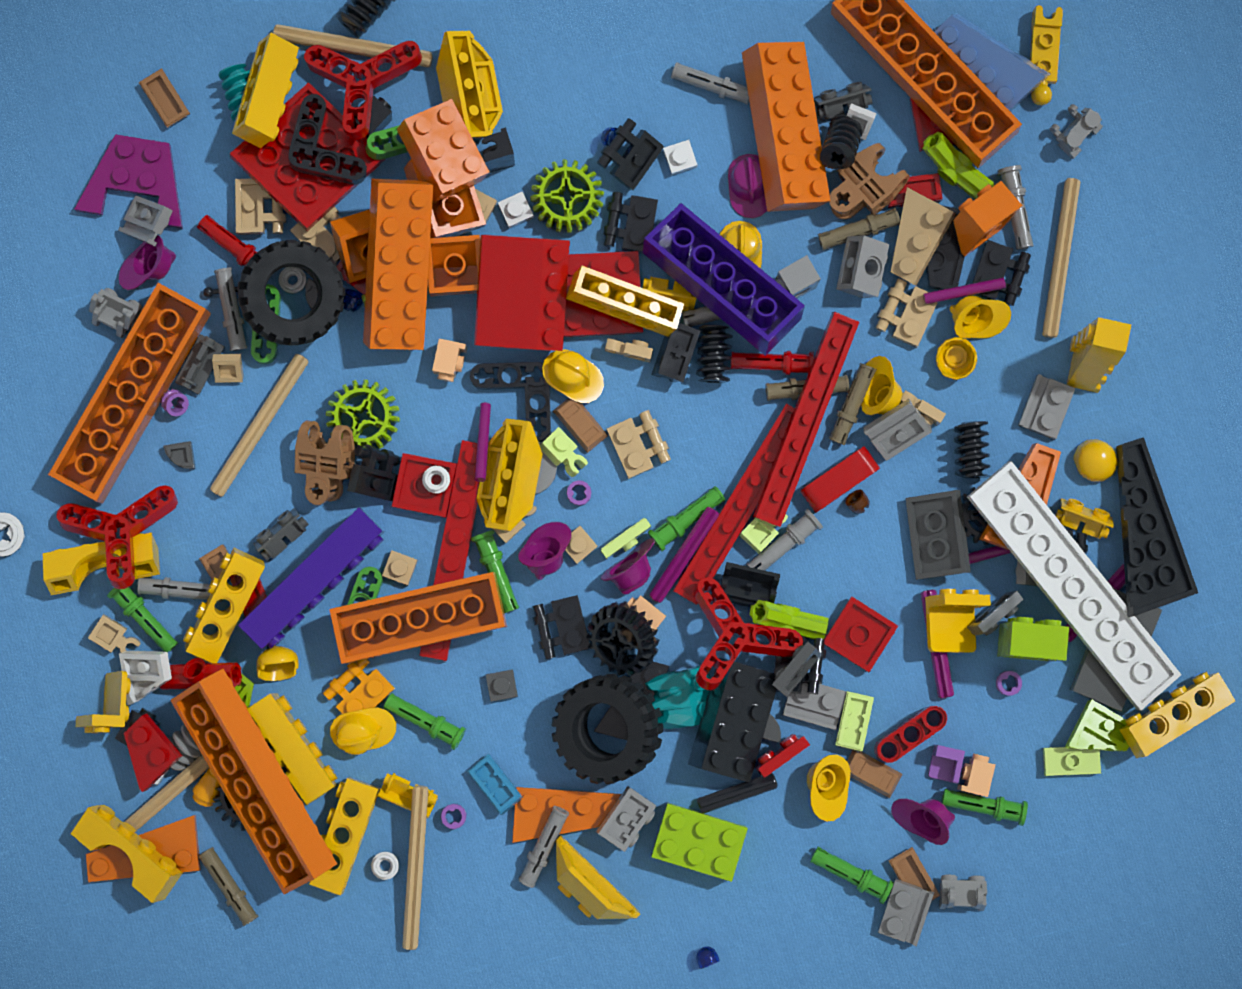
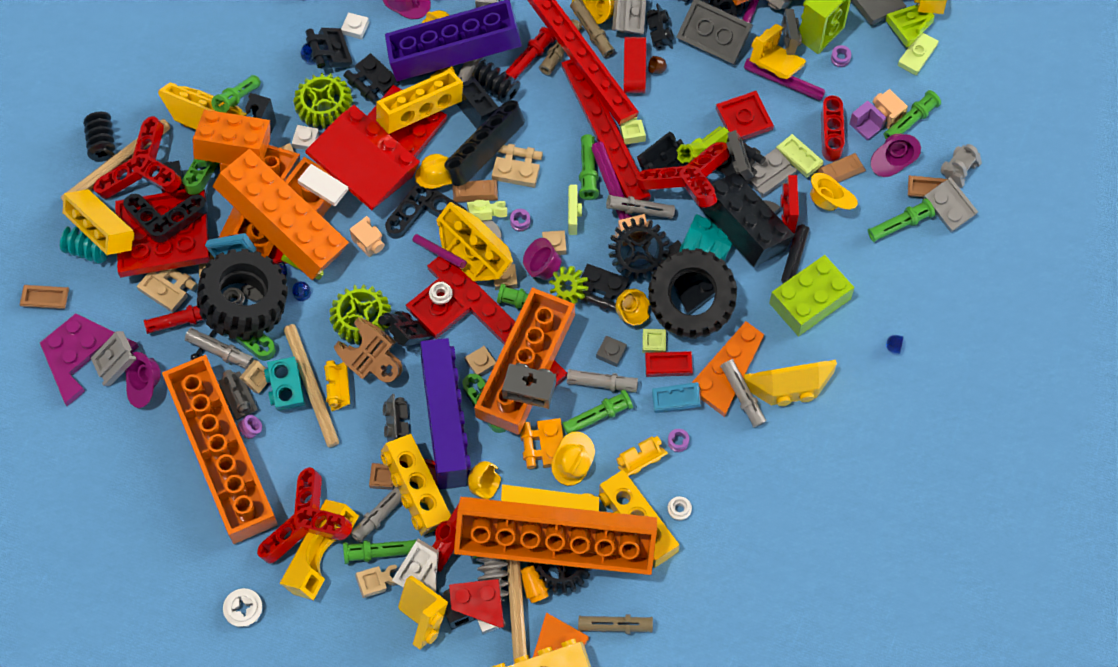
camera: 50 degrees left, 20 degrees down
(114, 311) = (155, 422): light grey piece -> none
(181, 454) = (288, 450): dark grey tile -> none
(242, 408) = (290, 382): none -> teal brick
(268, 458) = (338, 385): none -> yellow hinge
(330, 242) = (223, 244): none -> dark azure tile
(351, 343) = (305, 290): none -> clear blue hinge
(370, 638) = (537, 394): none -> dark grey brick
(415, 867) = (696, 484): tan axle -> none
(460, 279) = (323, 185): none -> white tile
(462, 700) = (606, 381): none -> light grey pin
(494, 107) = (249, 84): none -> bright green pin
(528, 750) = (668, 364): none -> red tile
(532, 599) = (577, 285): none -> lime gear
(541, 718) = (654, 340): none -> yellowish green tile
(557, 675) = (632, 306): none -> yellow hair
(621, 404) = (484, 143): none -> black beam
(627, 819) = (763, 327): light grey bracket -> none
(632, 570) = (596, 216): magenta piece -> none
(635, 350) = (454, 127): tan plate -> none
(668, 595) = (615, 202): none -> light grey pin
(795, 535) = (650, 113): light grey pin -> none
(915, 465) = (659, 20): none -> black hinge

